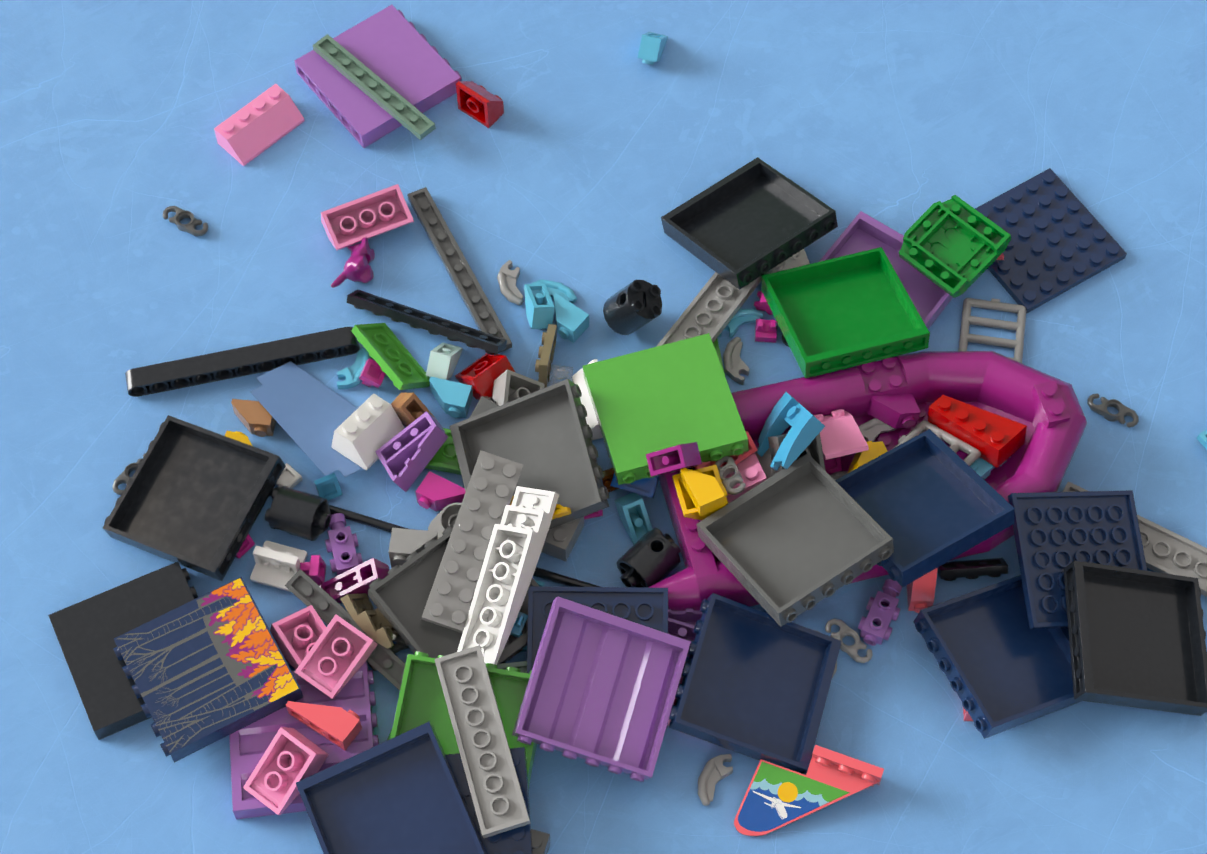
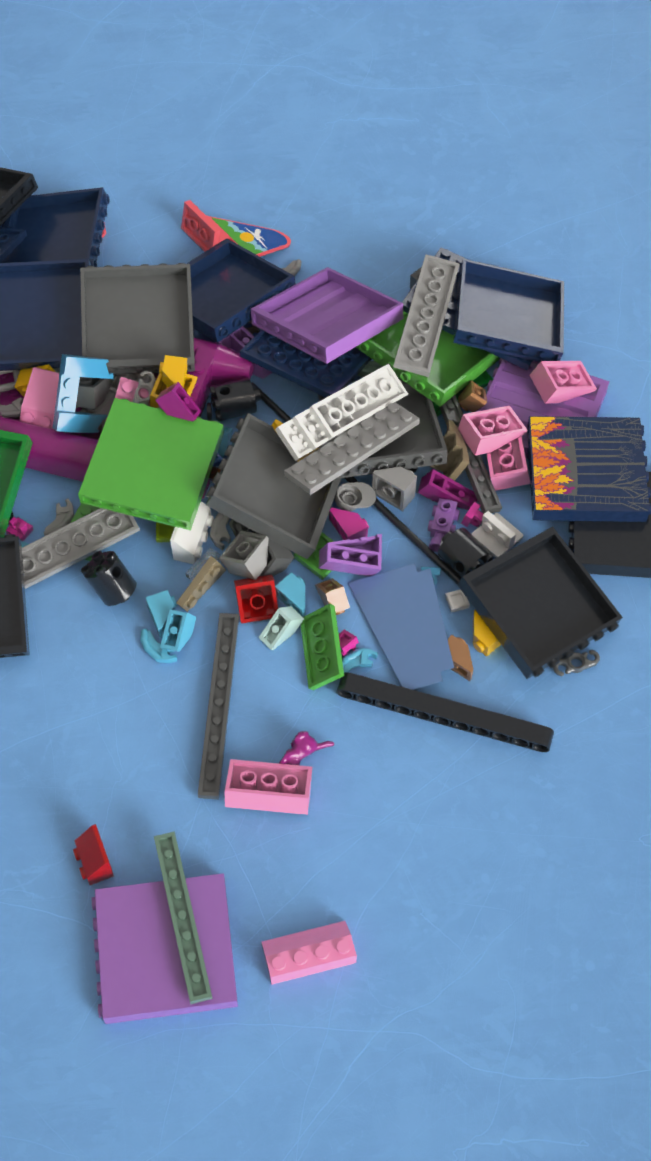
camera: 150 degrees left, 0 degrees up
(180, 214) = (428, 893): dark grey piece -> none
(329, 721) = (518, 395): coral slope -> none
(367, 431) = (378, 592): white slope -> none
(380, 698) = (472, 397): none -> medium nougat slope
(432, 323) = (277, 663): black plate -> none
(507, 283) = (186, 674): light grey piece -> none

